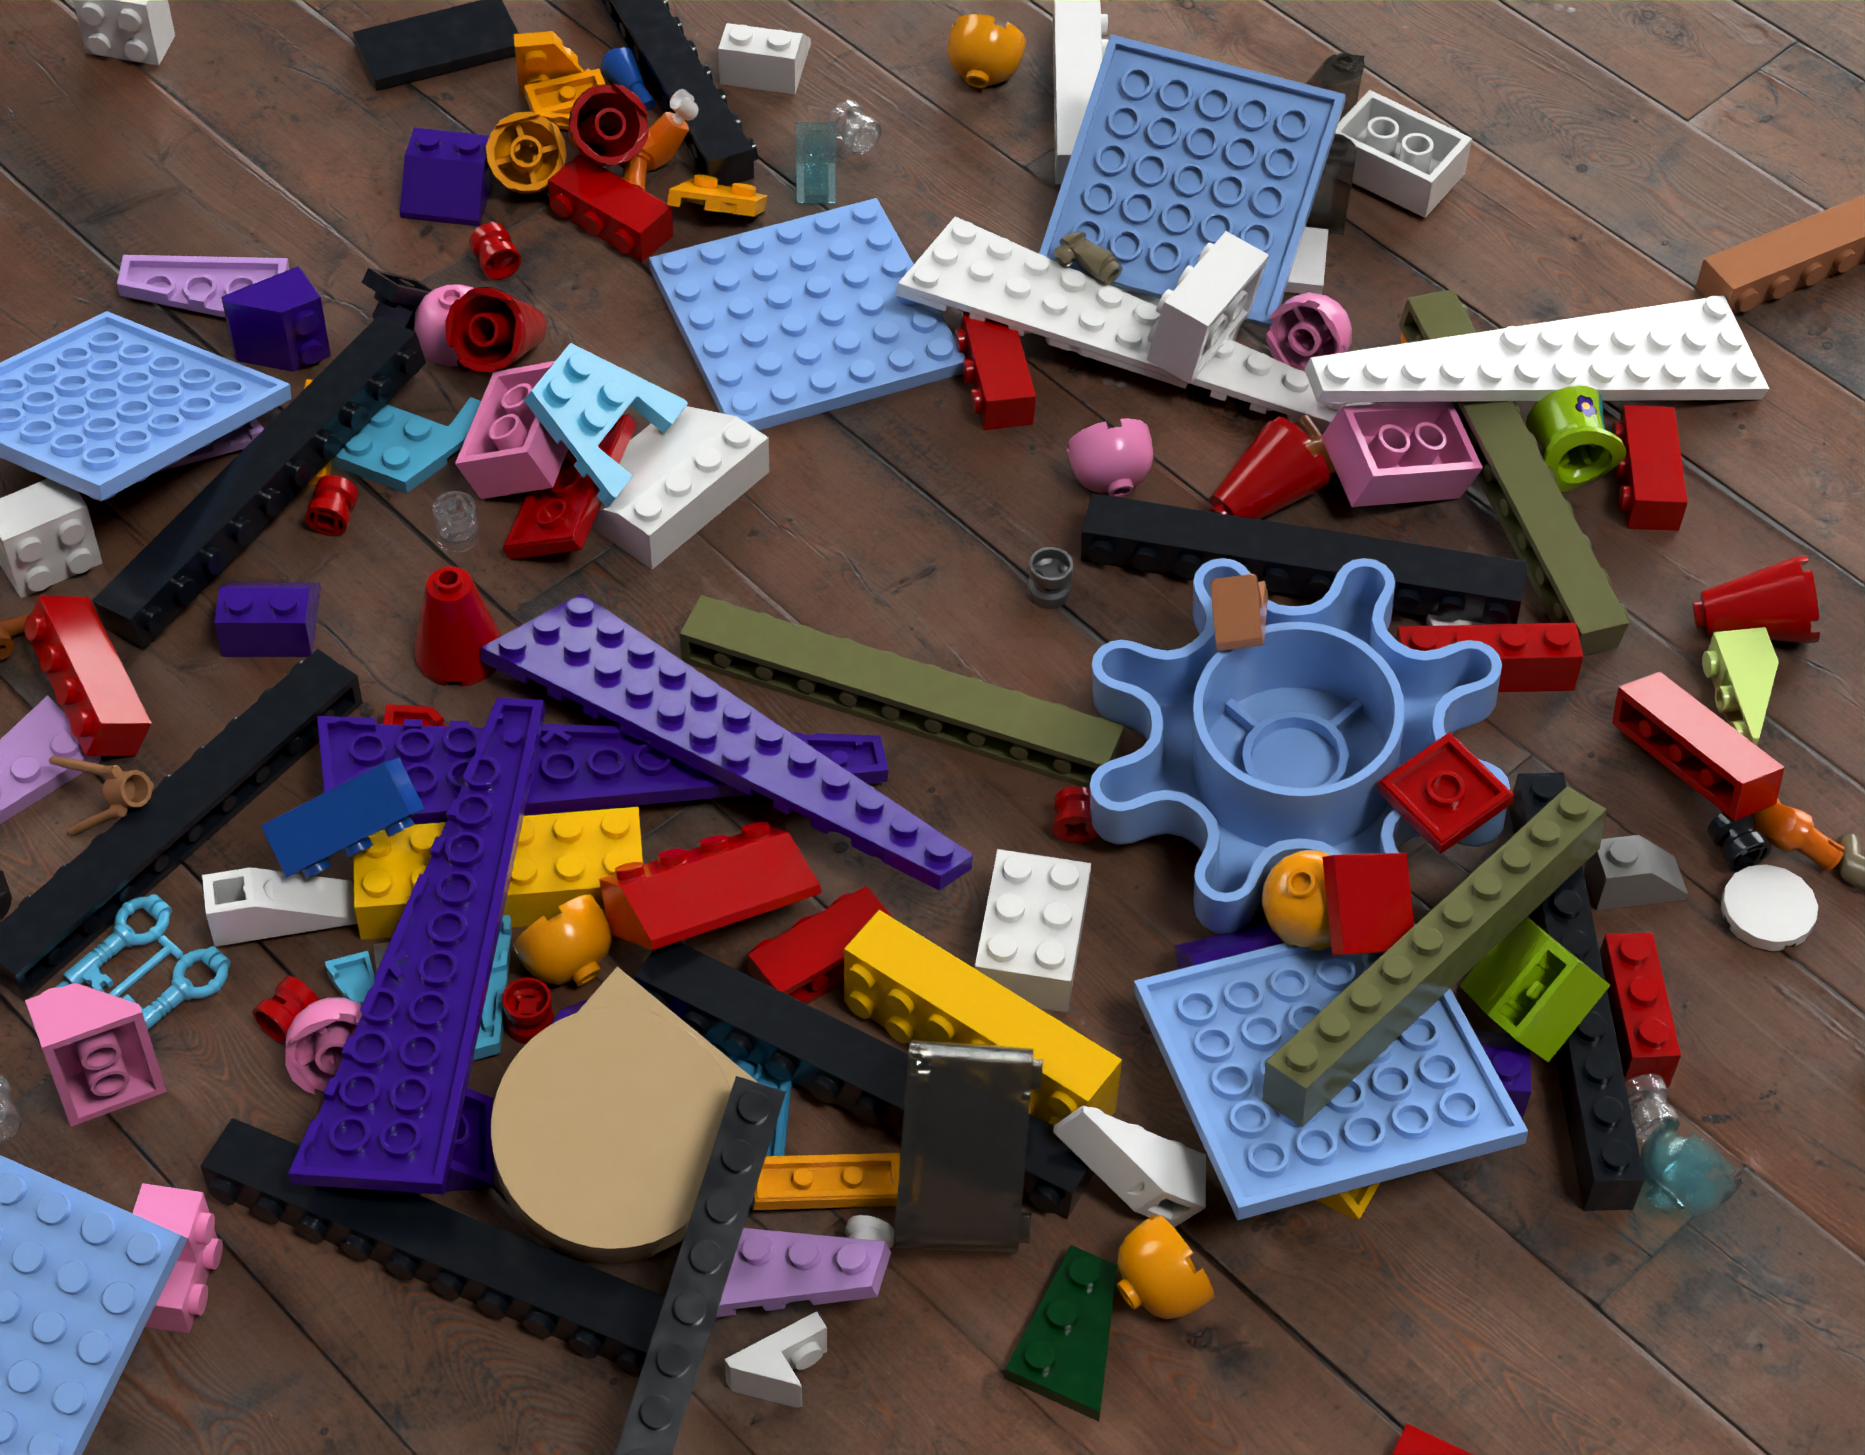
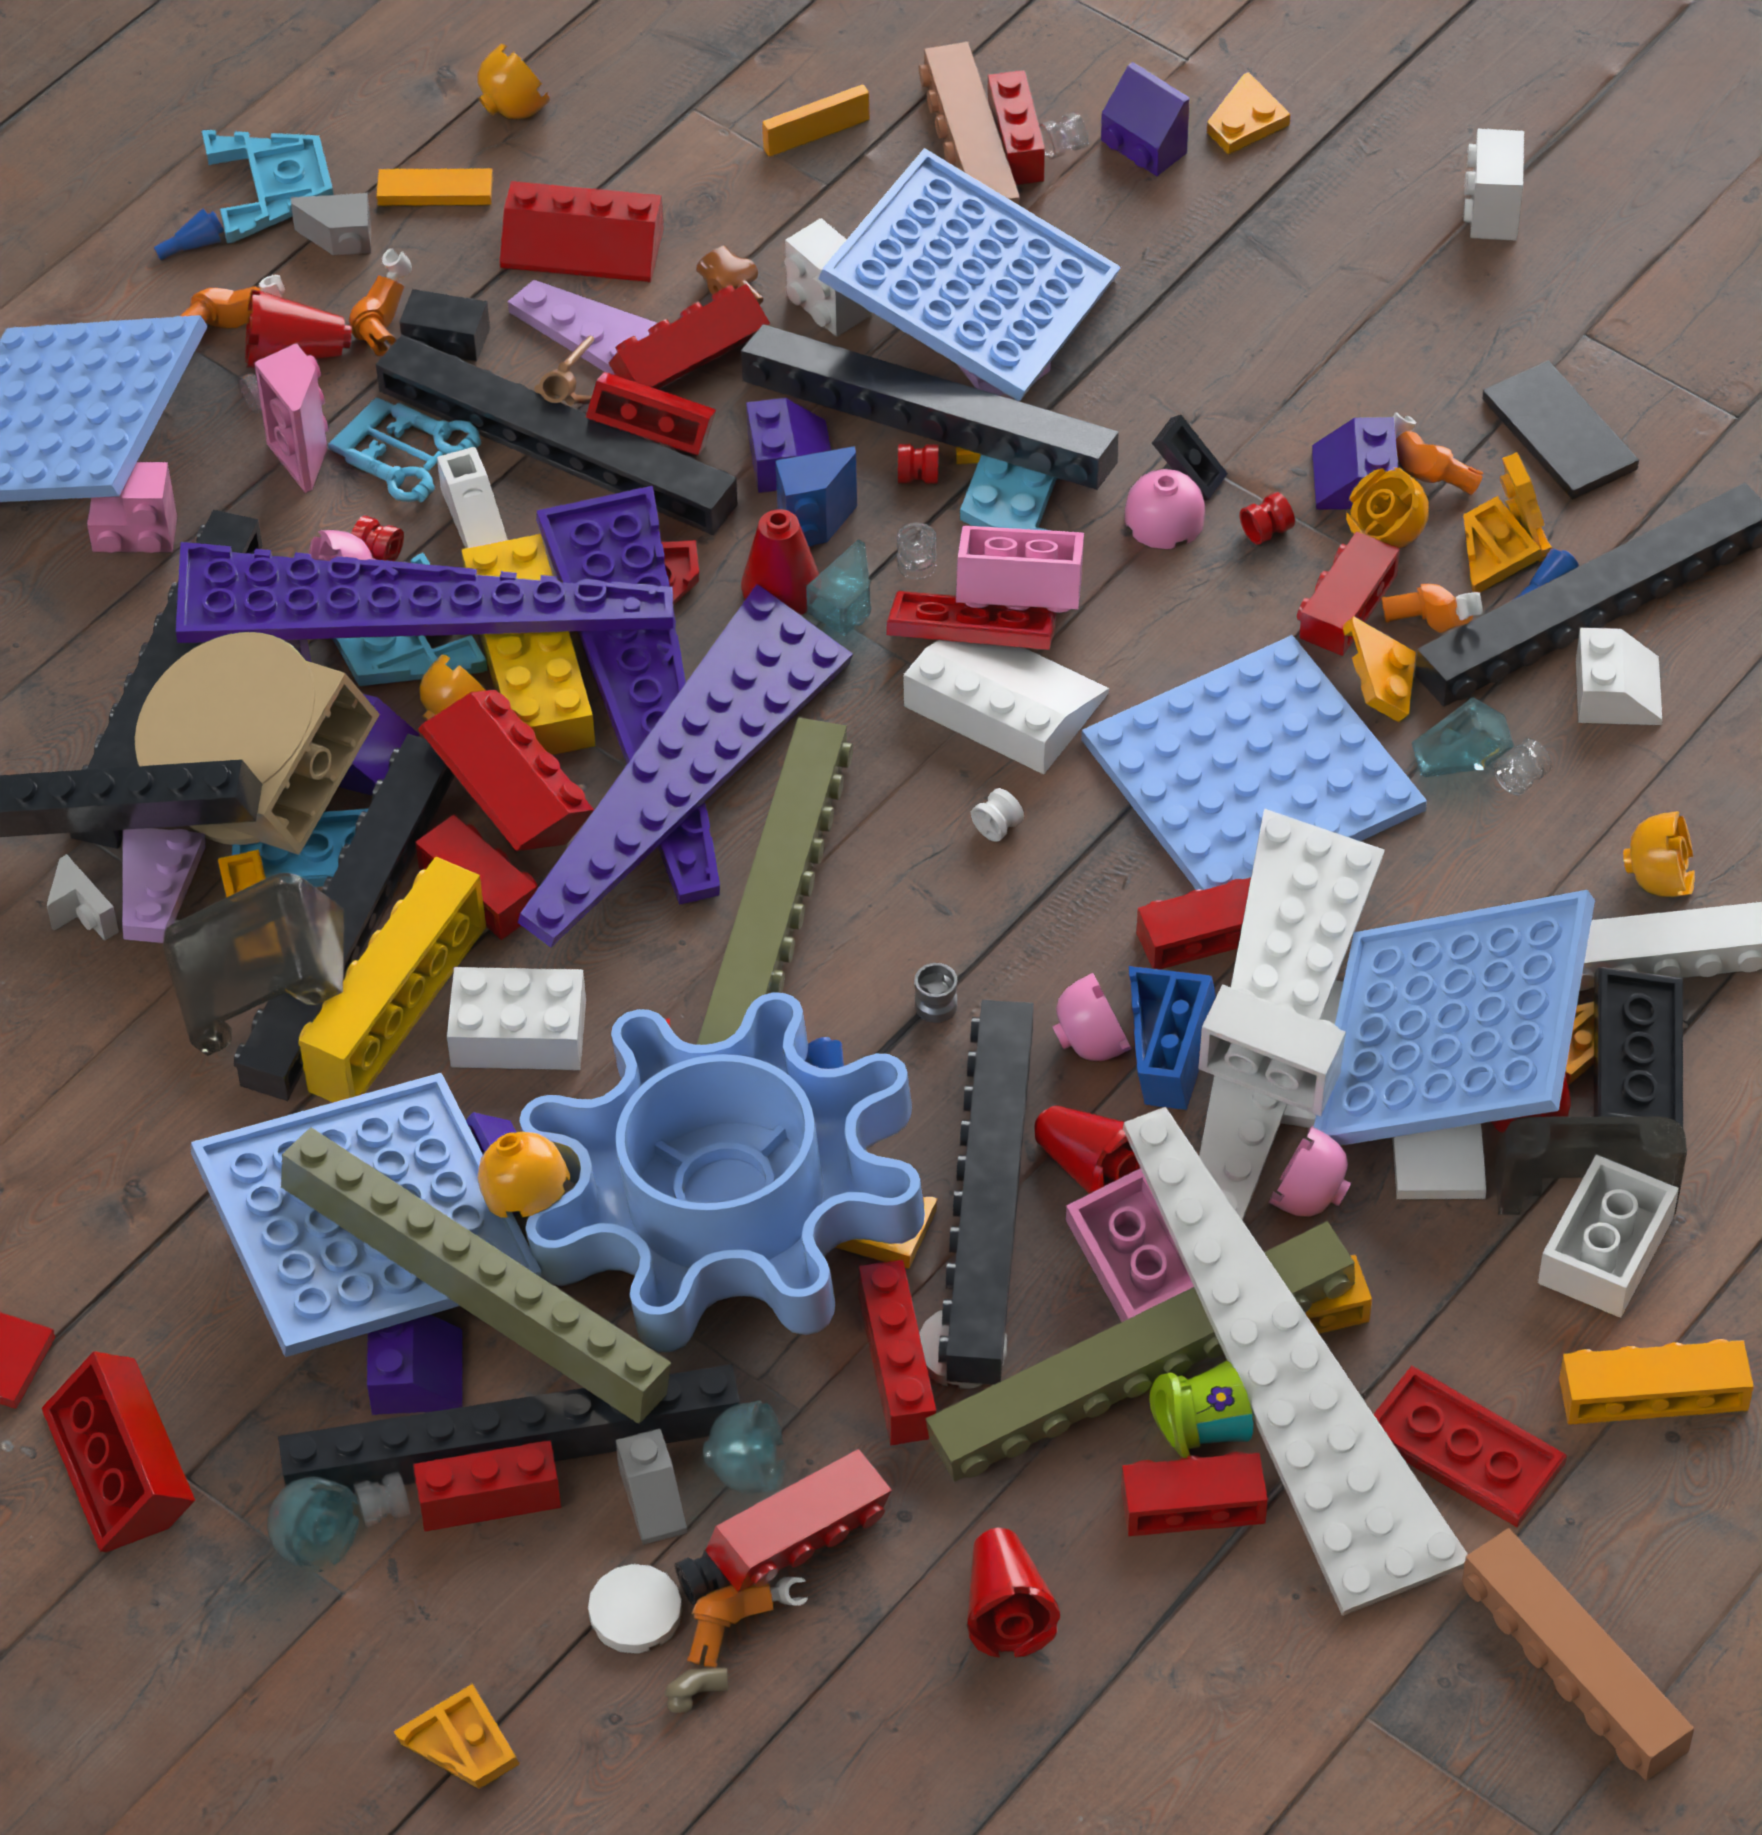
camera: 85 degrees right, 0 degrees up
(192, 281) = (1174, 333): lavender wing -> none
(193, 714) = (650, 413): none -> red brick
(277, 322) = (1120, 379): dark purple slope -> none
(344, 819) = (524, 511): blue brick -> none
(371, 586) = (818, 491): none -> blue slope
(467, 117) = (1429, 461): none -> orange arm
(492, 329) = (1137, 527): red cone -> none
(503, 582) = (842, 591): none -> clear light blue slope
(527, 1008) = (394, 687): red wheel -> none
(583, 401) = (1035, 588): wing -> none
(608, 124) = (1417, 549): red cone -> none
(830, 502) = (997, 814): none -> white wheel
(1069, 1335) = (122, 1090): dark green wing -> none
(1091, 257) = (1349, 966): dark tan arm -> none
(1122, 388) = (1167, 1032): none -> blue wedge
(1139, 1166) = (269, 1089): white slope -> none
(1160, 1272) = (165, 1133): light orange cylinder -> none
(1239, 611) = (809, 1072): nougat slope -> none
(1367, 901) = (505, 1202): red tile -> none
(1445, 792) = (644, 1261): red tile -> none
(1534, 988) = (465, 1376): lime slope -> none
(1540, 158) = (1656, 1381): none -> light orange brick
(1583, 1362) = (117, 1451): none -> red slope
(1599, 279) = (1468, 1446): none -> red tile
(1607, 779) = (744, 1448): none -> clear light blue cylinder
(1743, 675) = (904, 1582): yellowish green slope -> none

